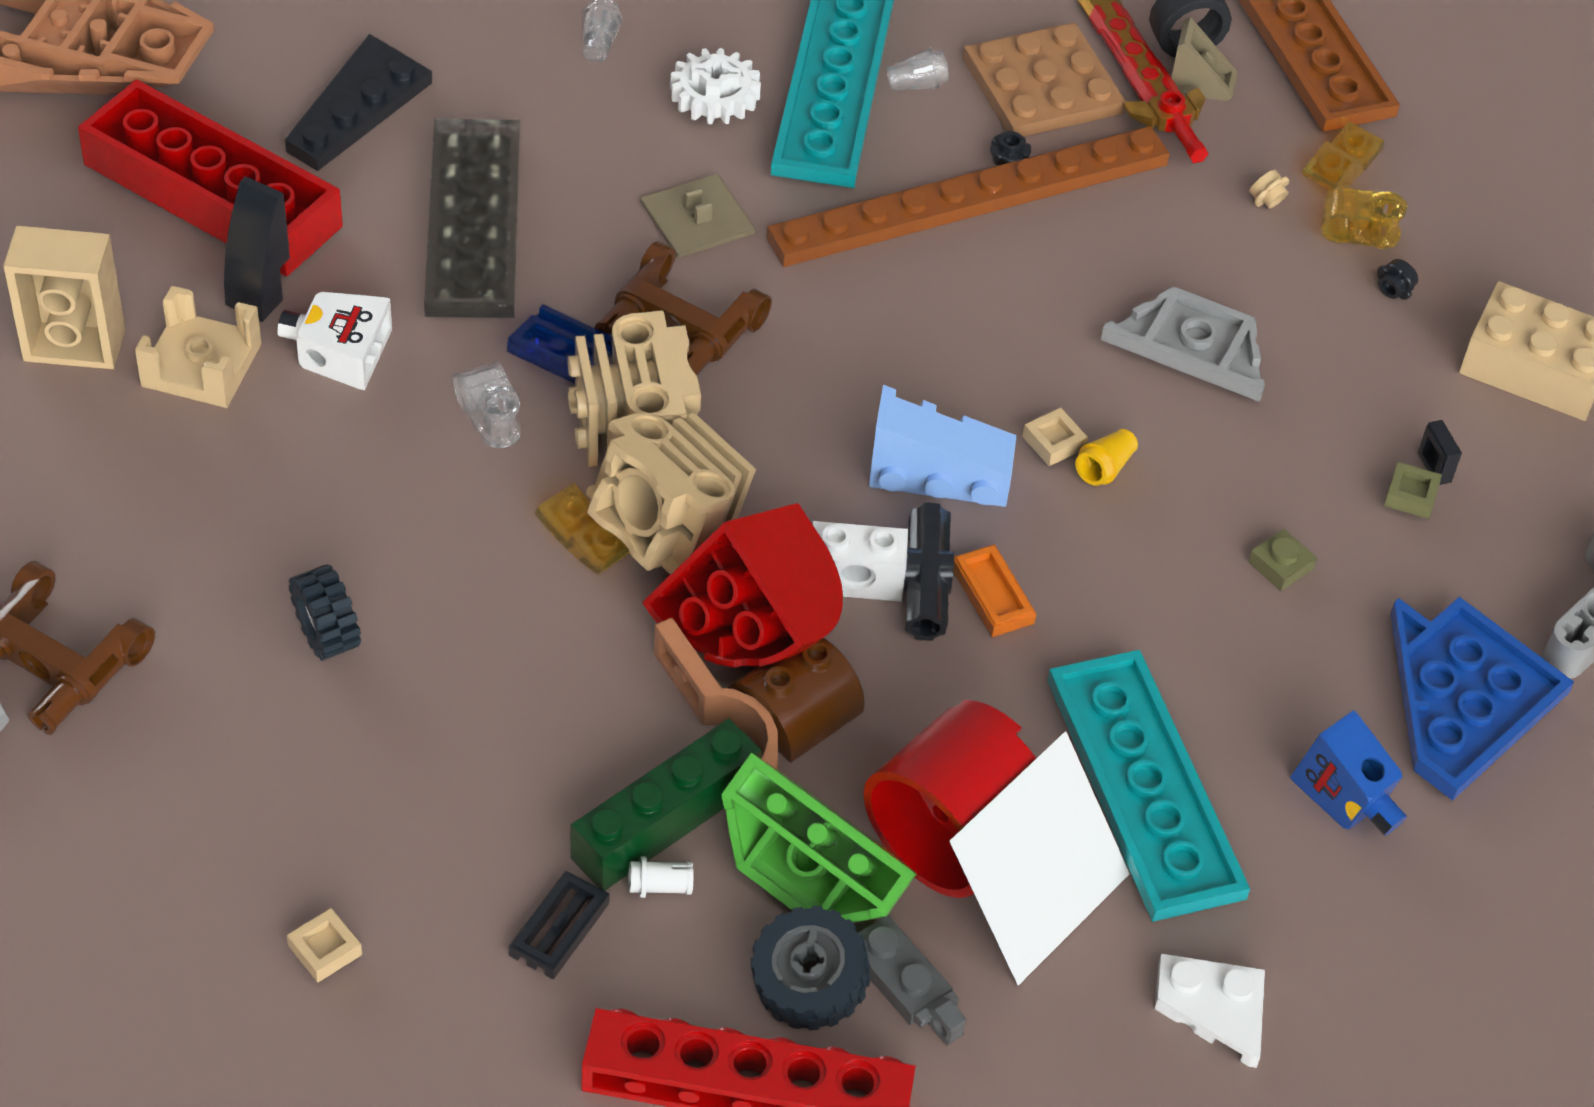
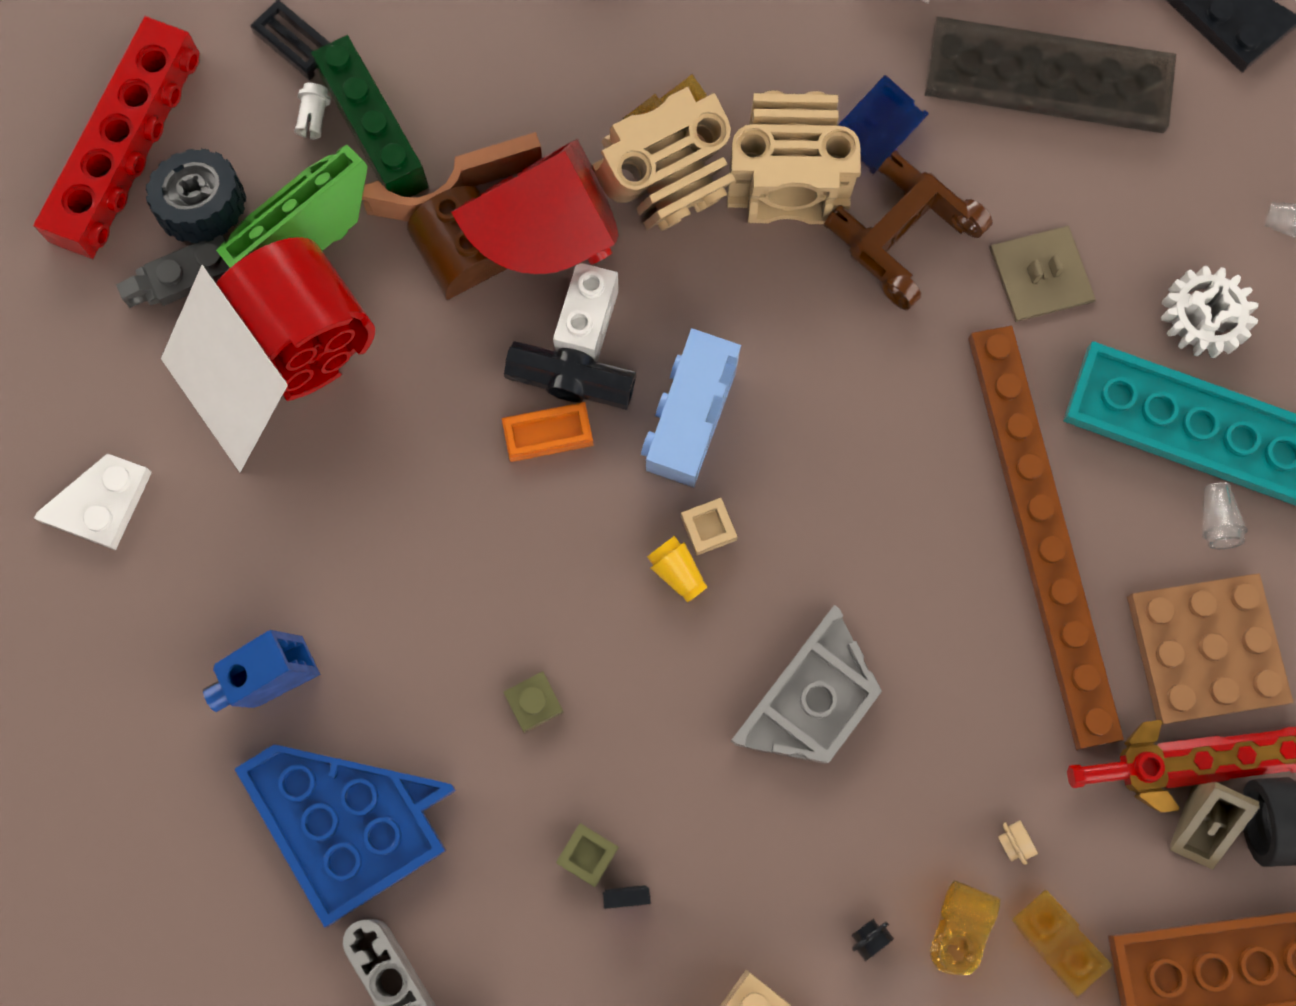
camera: 105 degrees right, 25 degrees up
(489, 403) = (820, 54): clear piece -> none
(1009, 148) = (1093, 589): black plate -> none
(1147, 786) = (311, 502): teal plate -> none

